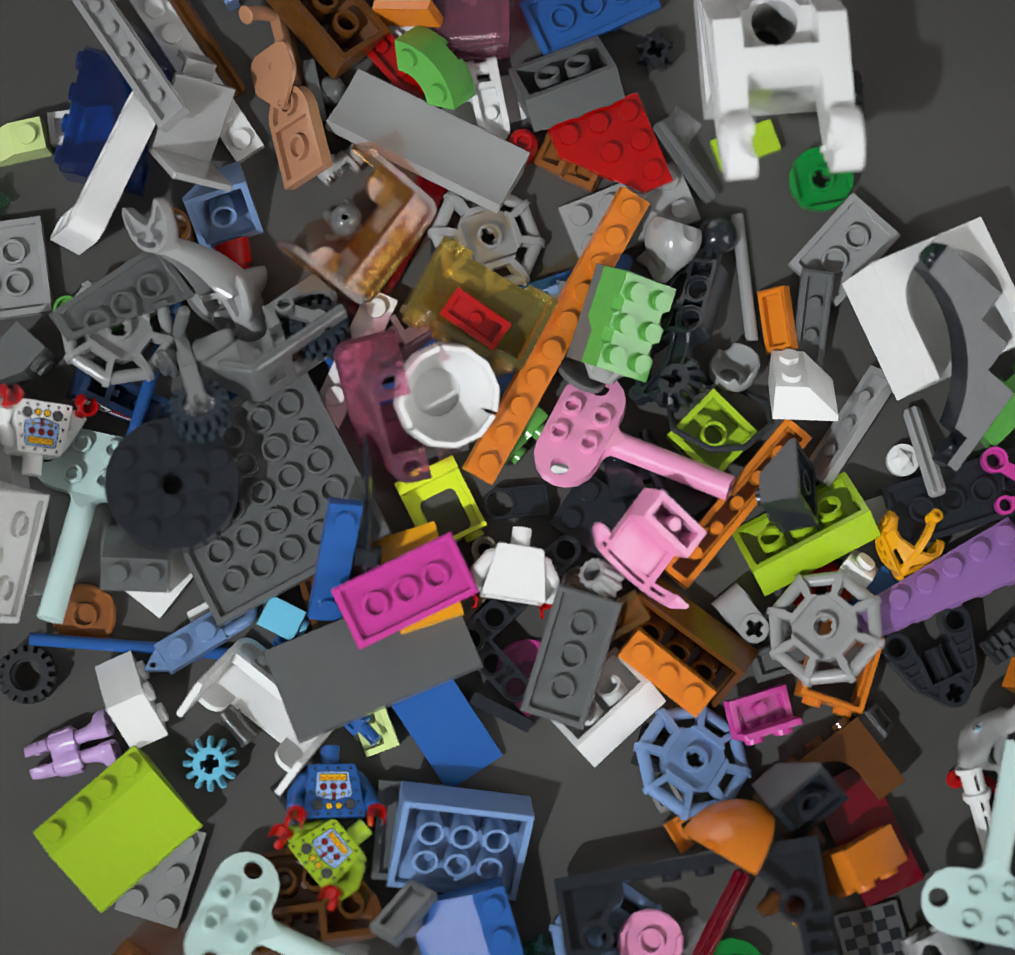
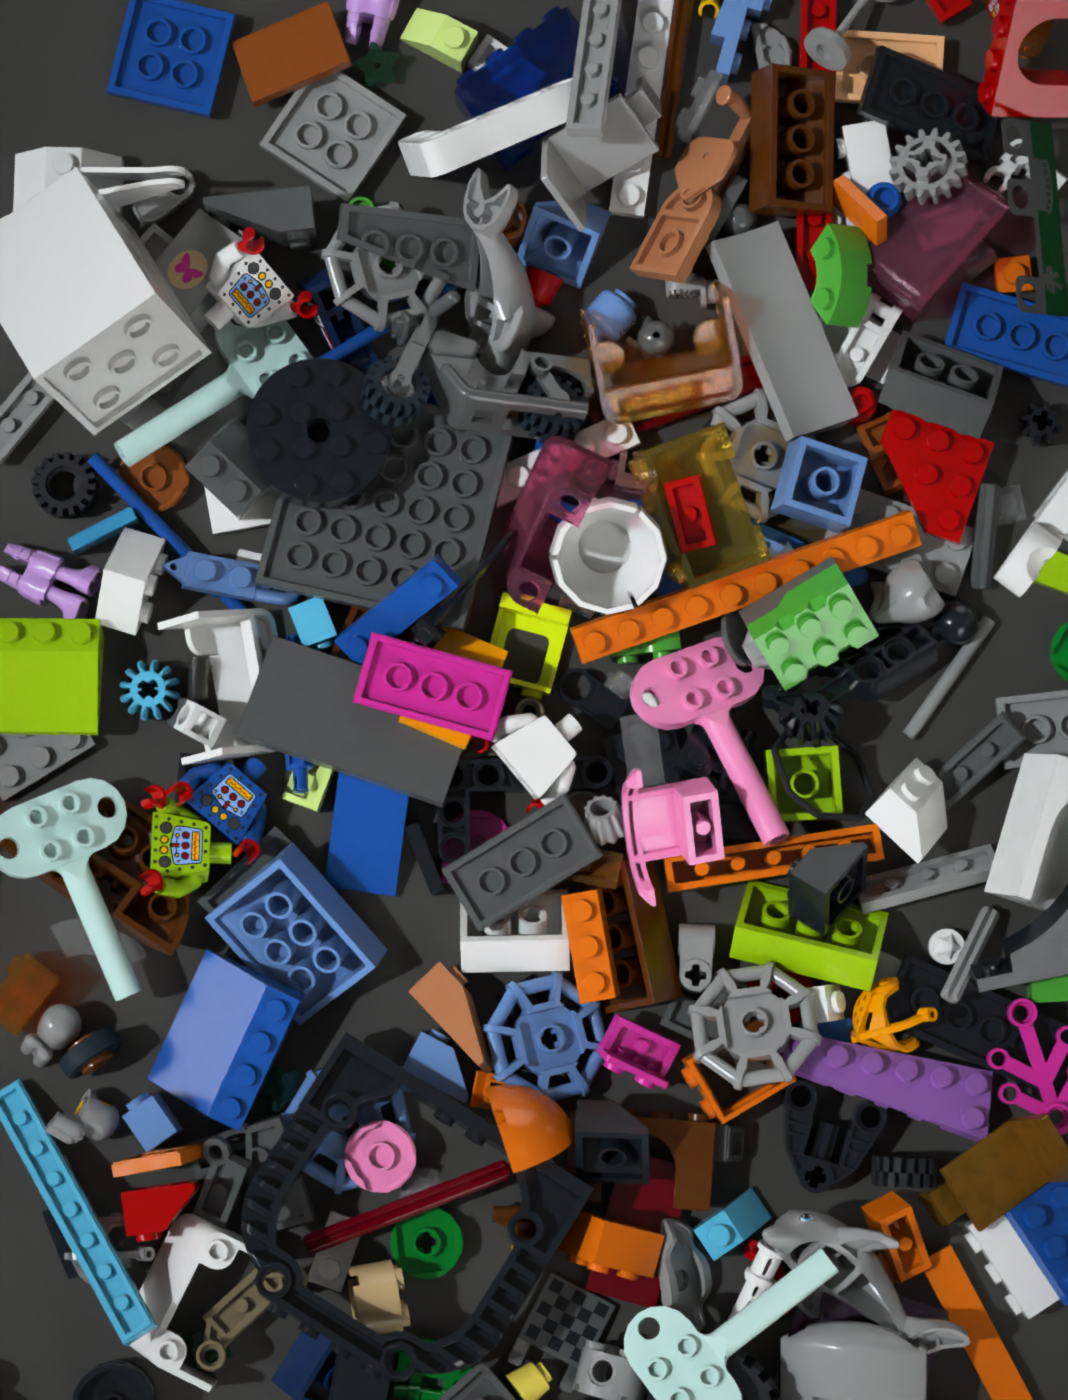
camera: 45 degrees right, 0 degrees up
(82, 682) = (103, 531): none -> dark azure tile
(231, 25) = (704, 94): none -> clear plate
(263, 757) = (197, 722): none -> white leg
(301, 229) = (612, 314): none -> medium blue head
(404, 913) = (199, 951): dark grey tile -> none
(527, 475) = (619, 683): none -> clear plate
(544, 222) = (819, 484): none -> medium blue brick
(583, 507) = (642, 750): none -> clear plate
(611, 797) = (453, 1008): none -> nougat slope
(632, 845) = (437, 1064): none -> medium blue slope
(734, 368) = (872, 745): light grey hair -> none
(777, 319) = (945, 736): orange tile -> none
(911, 825) = (681, 1254): none -> light grey piece
(925, 775) = (731, 1224): none -> medium azure slope

